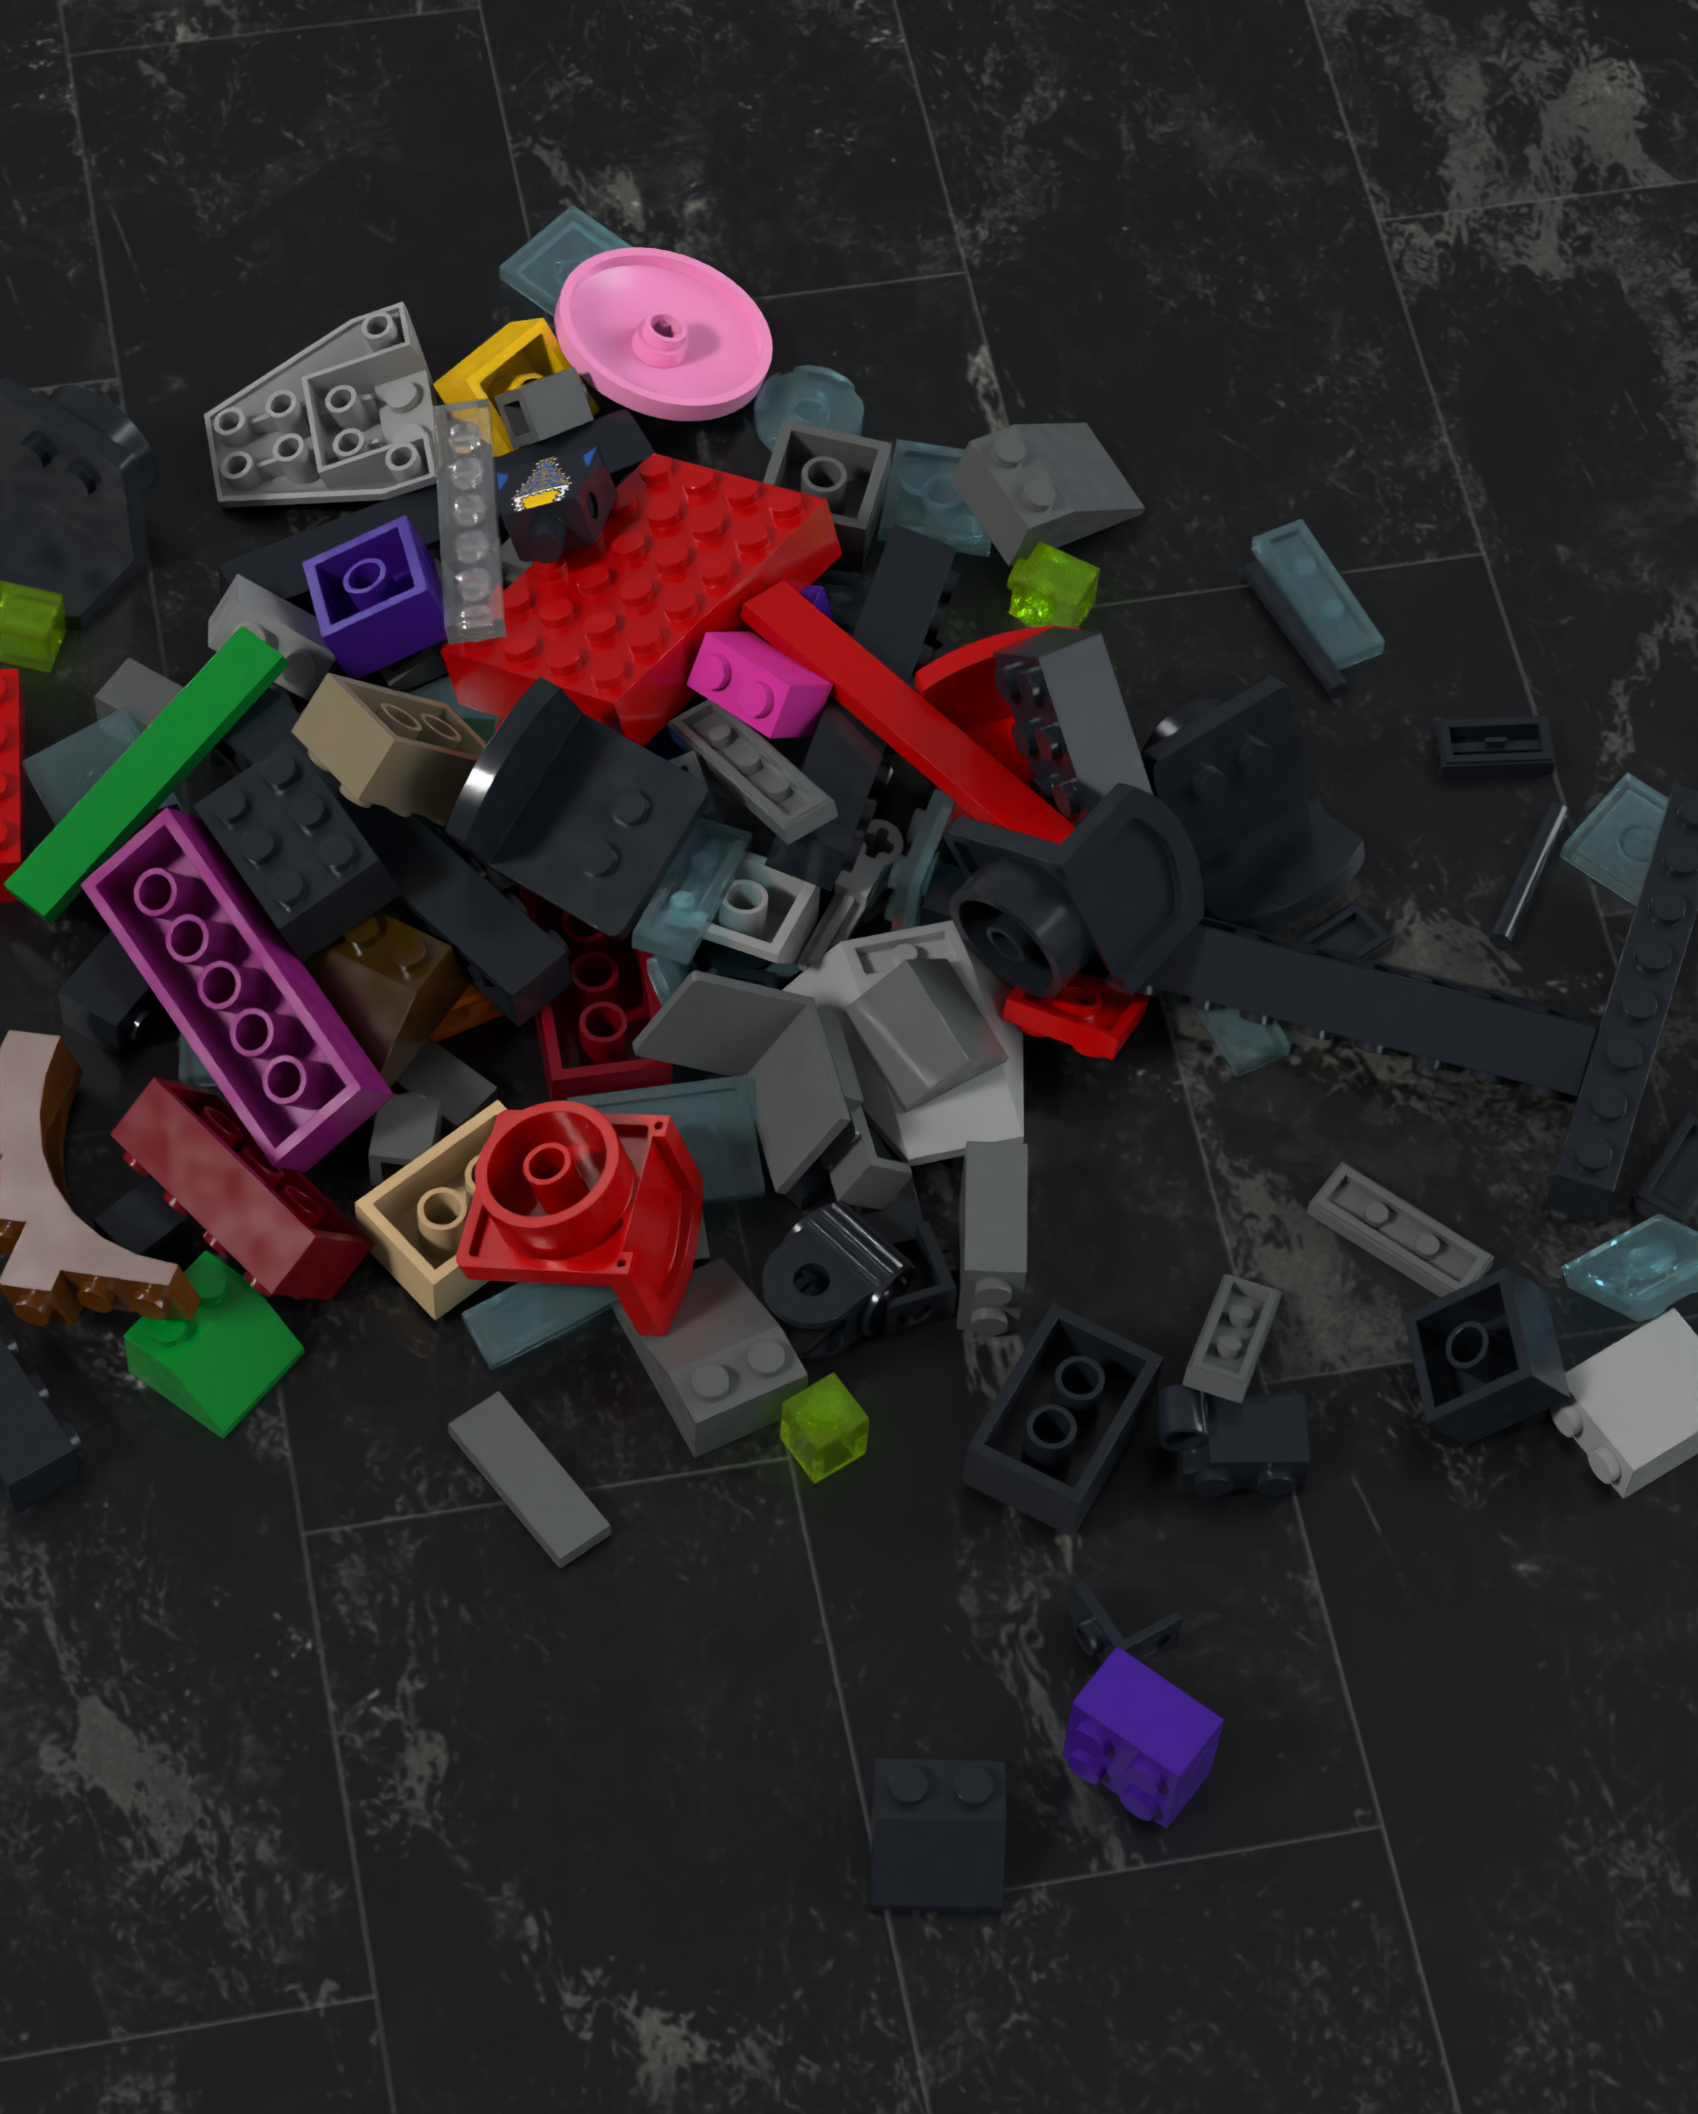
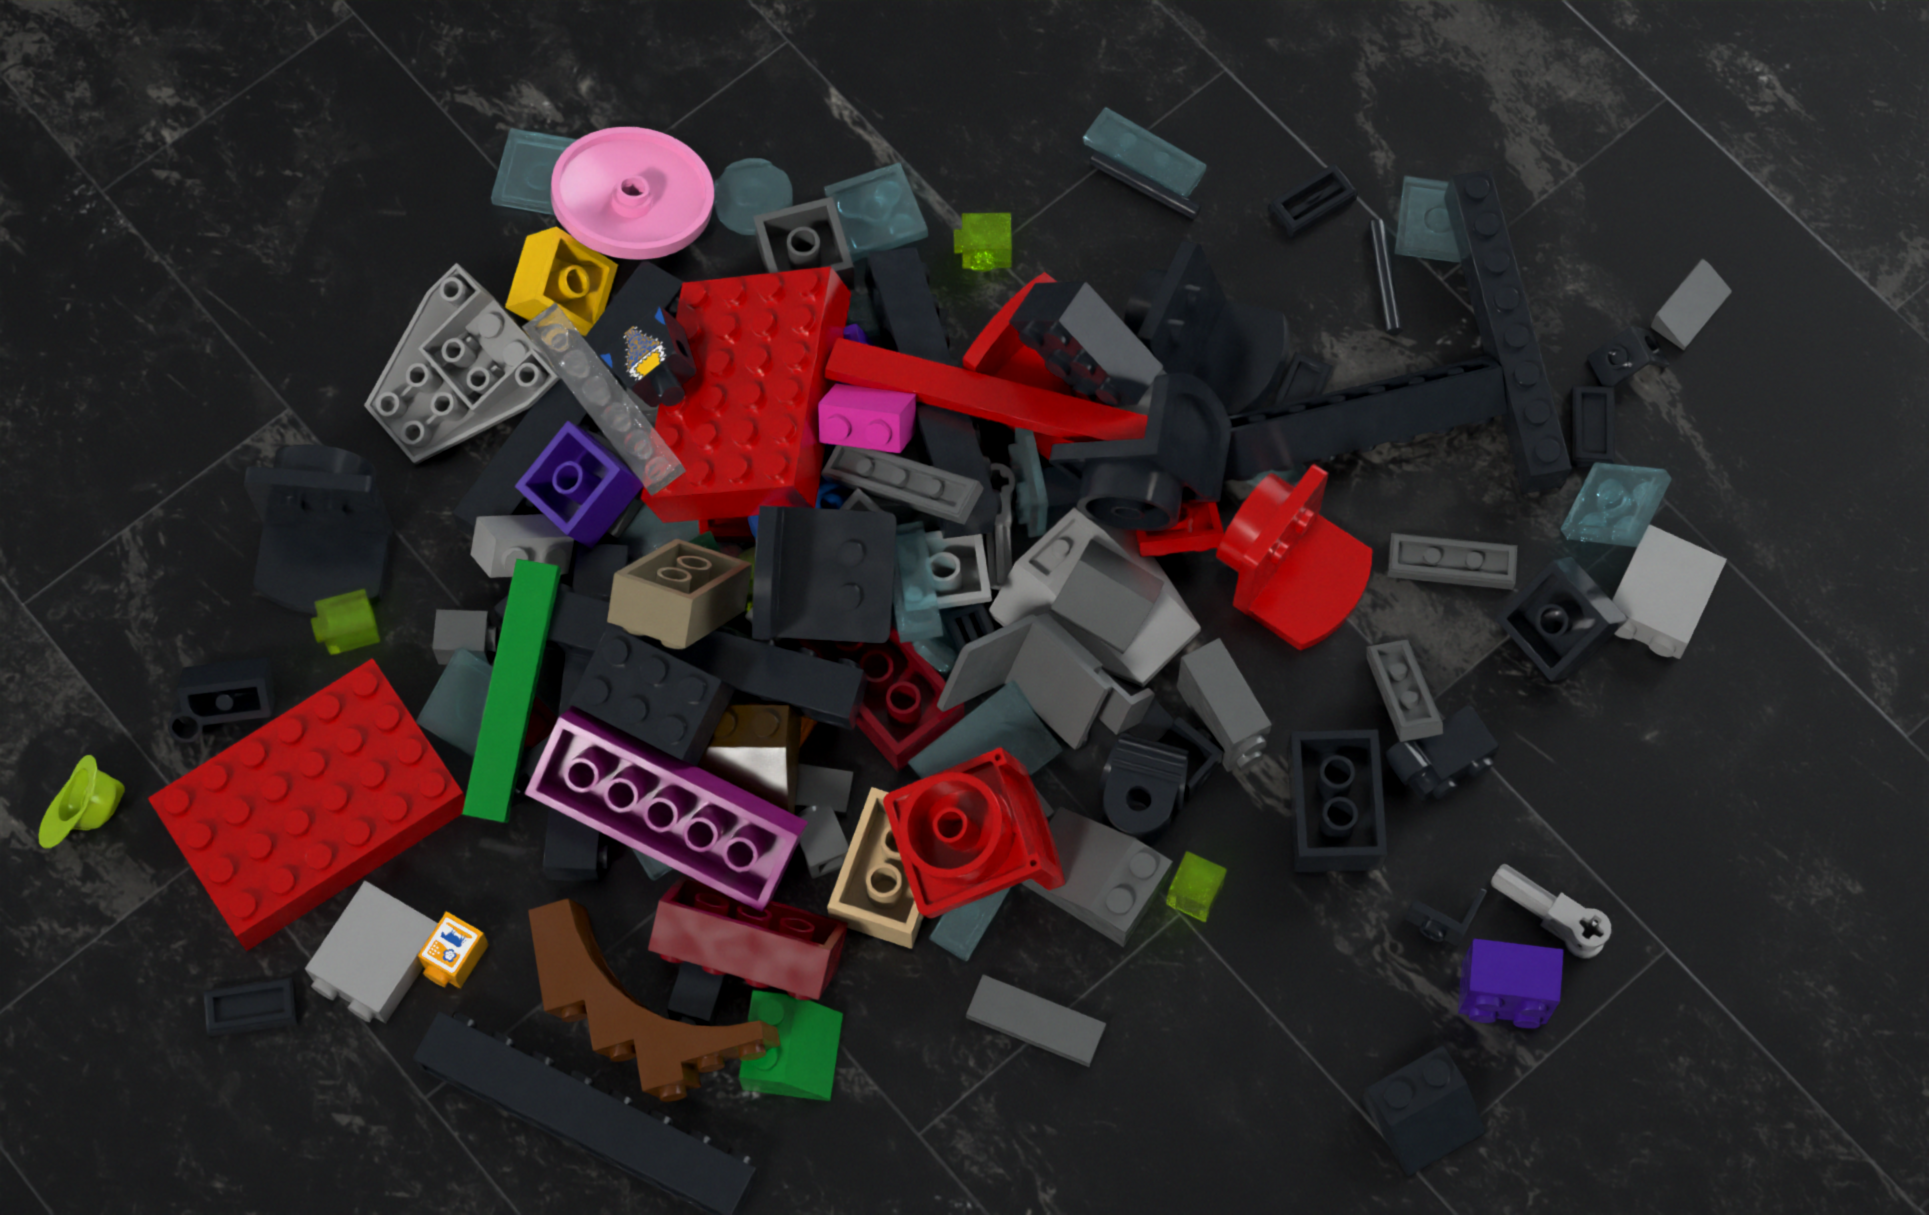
camera: 25 degrees left, 10 degrees up
(544, 407) = (592, 288): dark grey brick -> none
(1042, 486) = (938, 174): dark grey slope -> none
(1188, 1117) = (1293, 564): none -> red piece
(1263, 1701) = (1559, 914): none -> light grey connector

